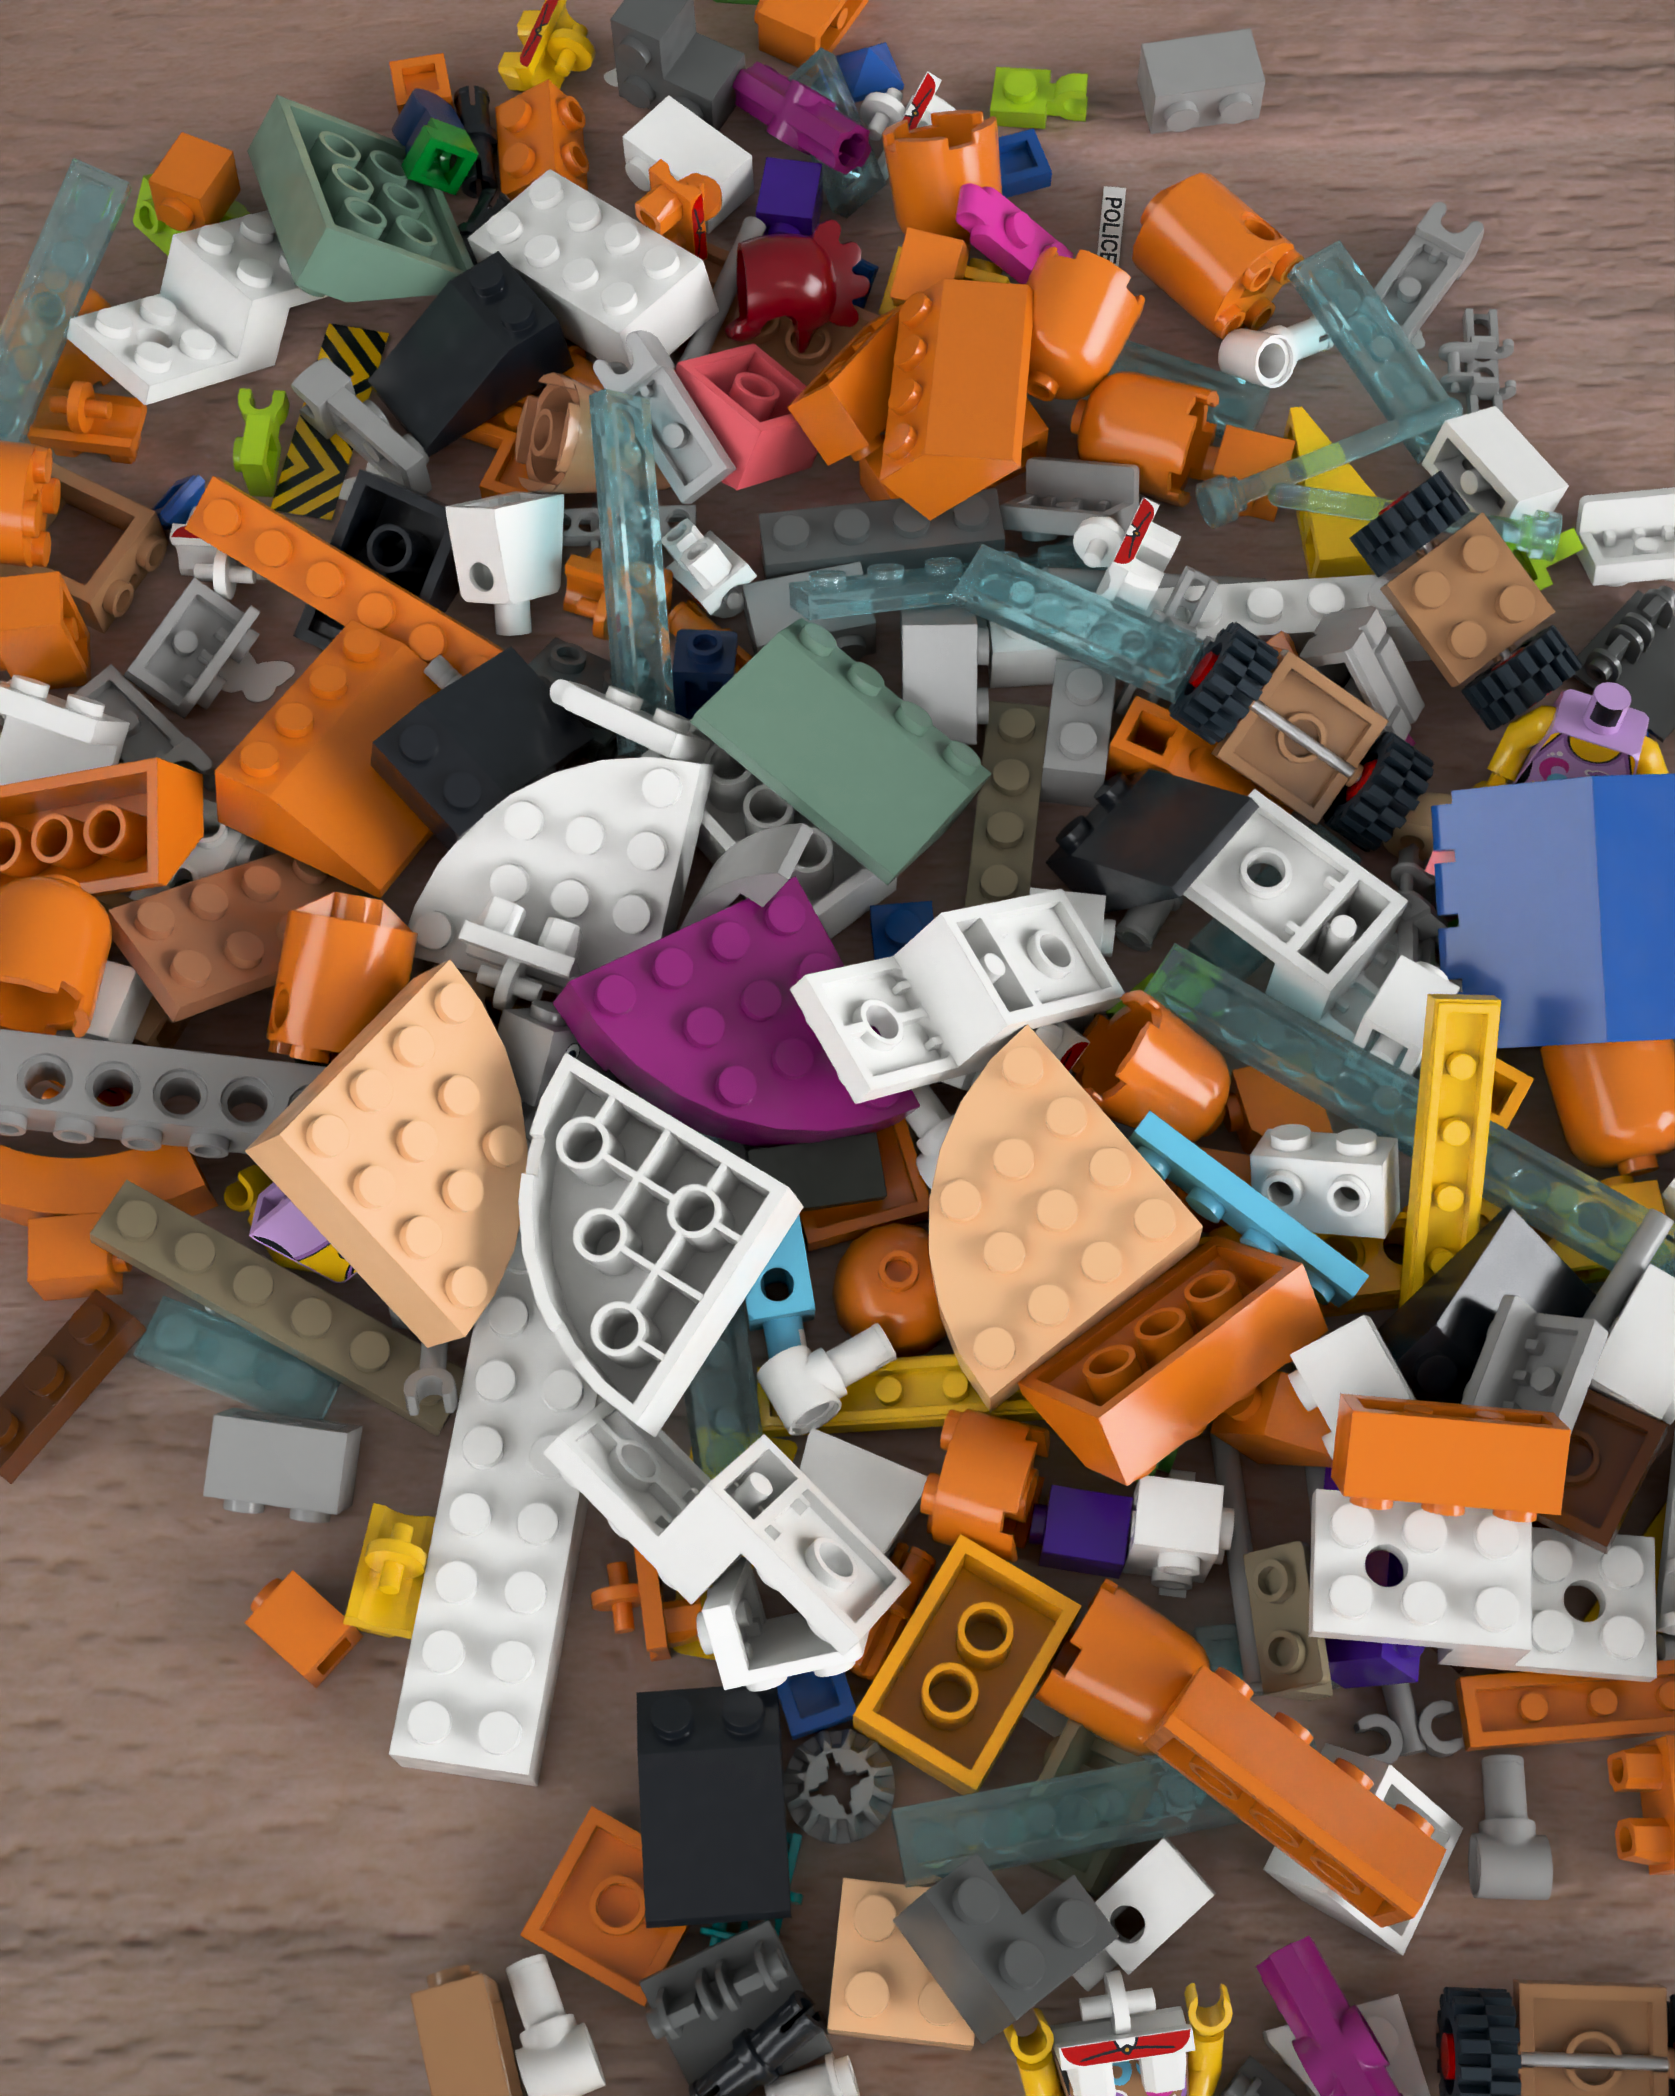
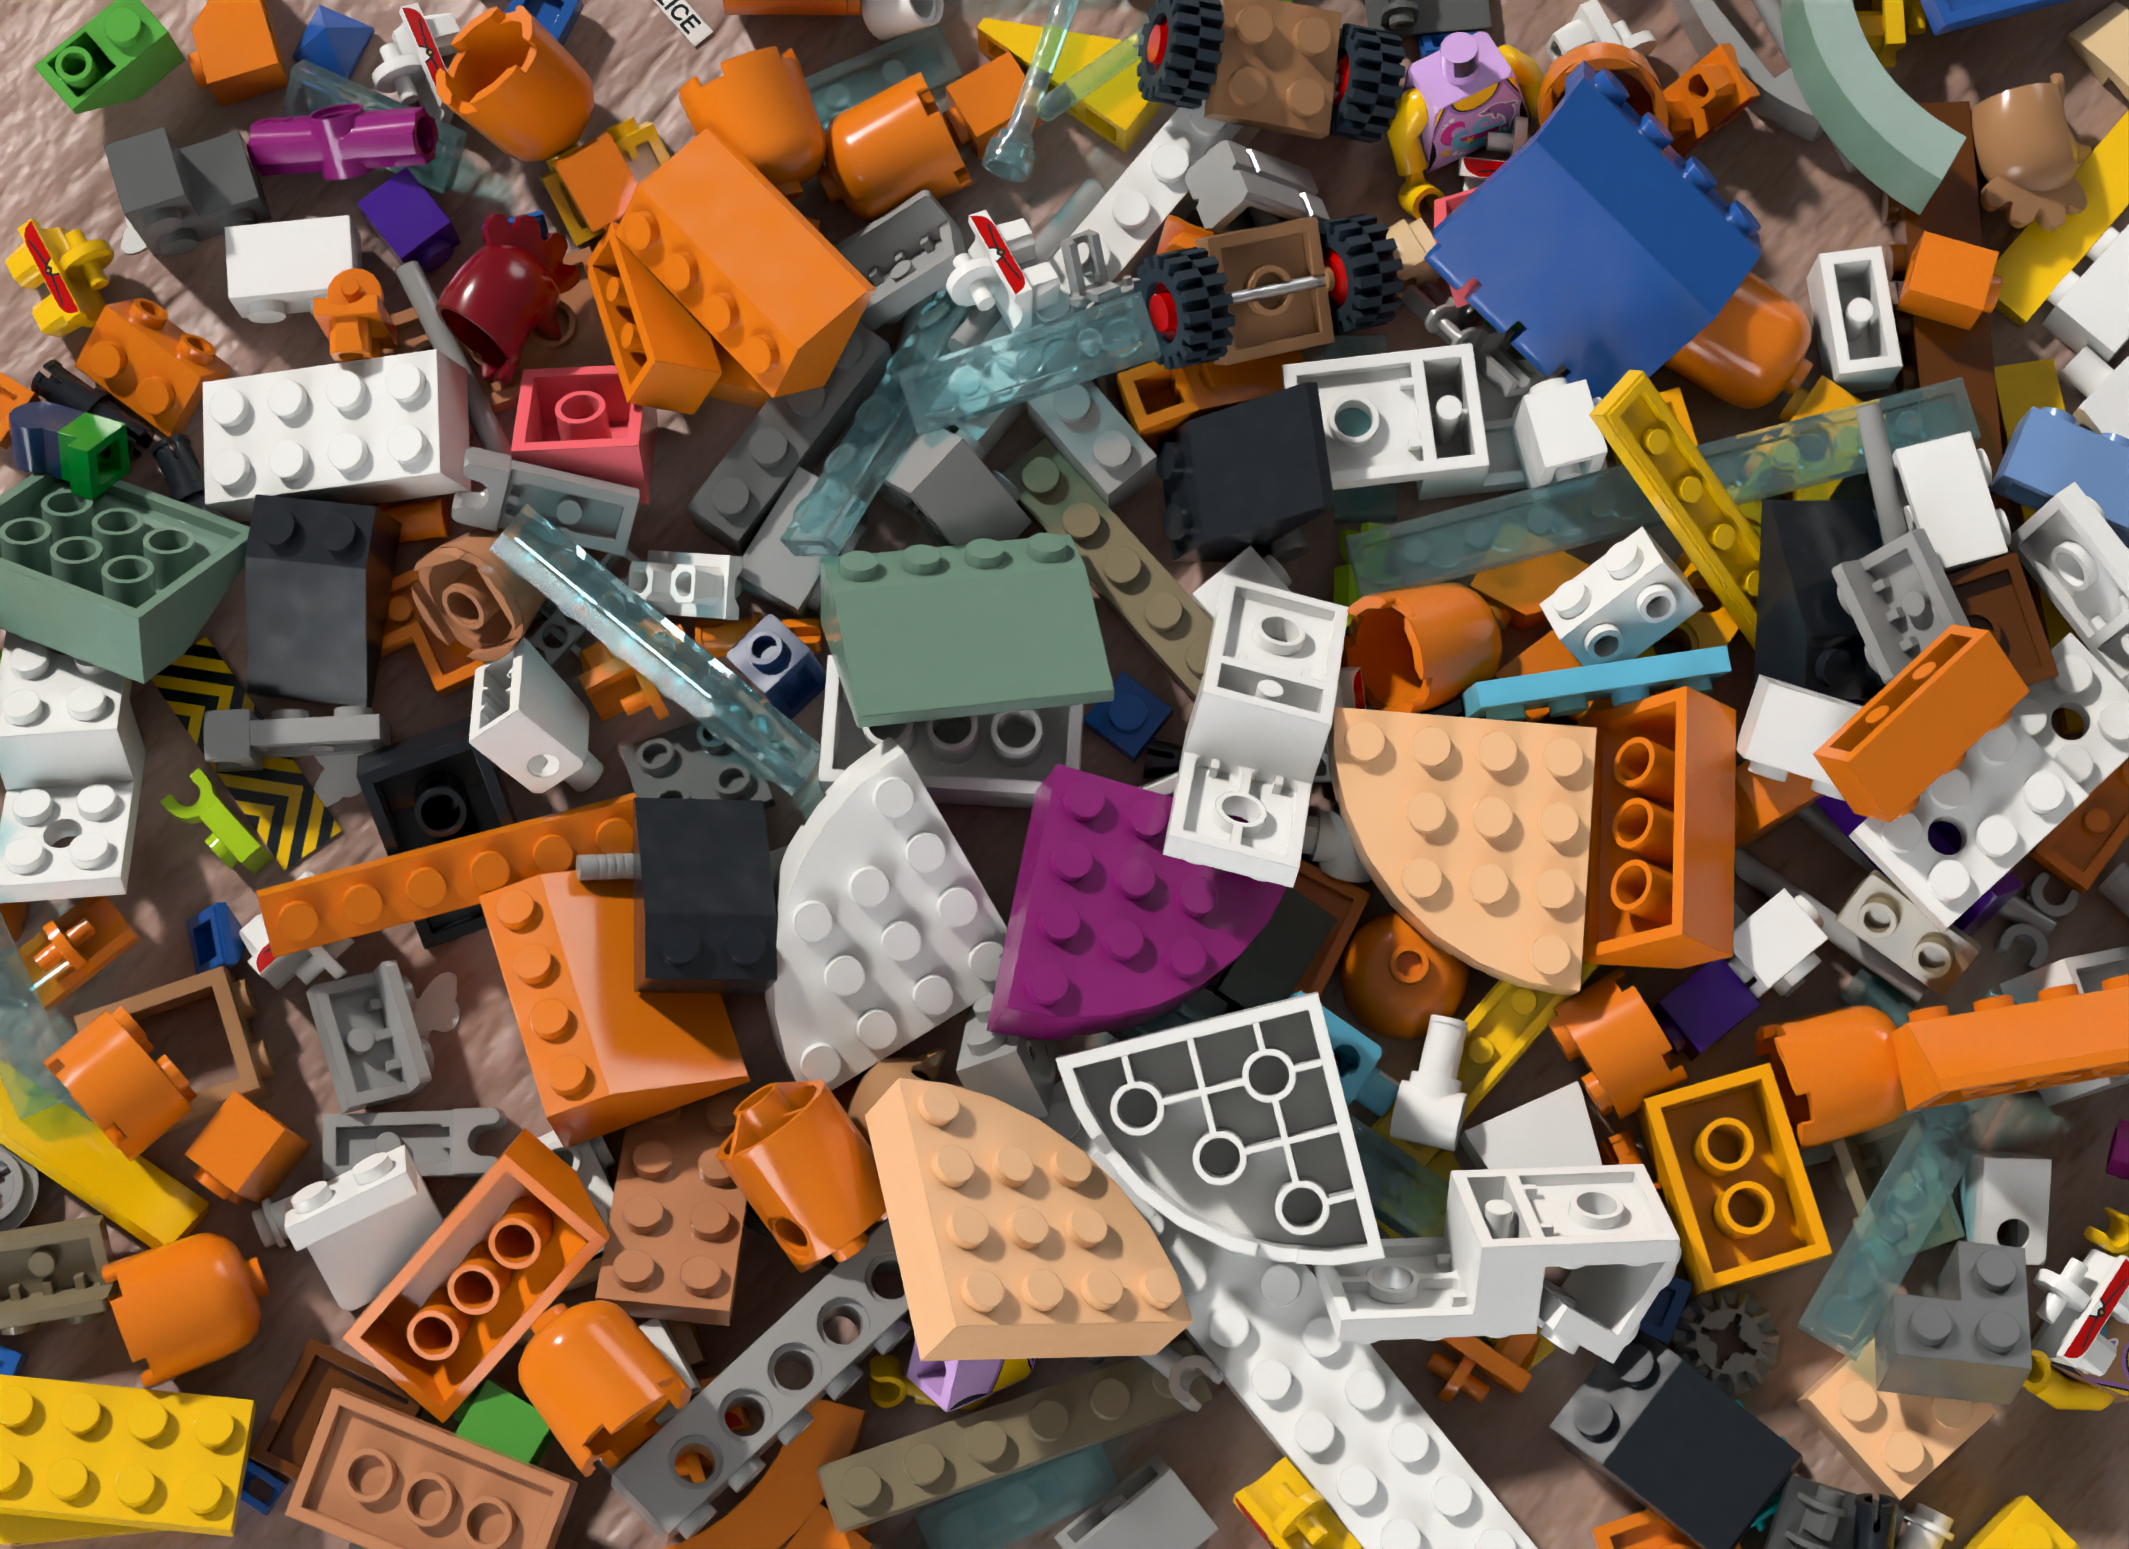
camera: 45 degrees left, 10 degrees up
(497, 942) = (940, 997): white hips -> none
(621, 713) = (784, 767): white hinge -> none
(752, 867) = (1028, 788): light grey slope -> none
(1003, 231) = (627, 88): dark pink hinge -> none

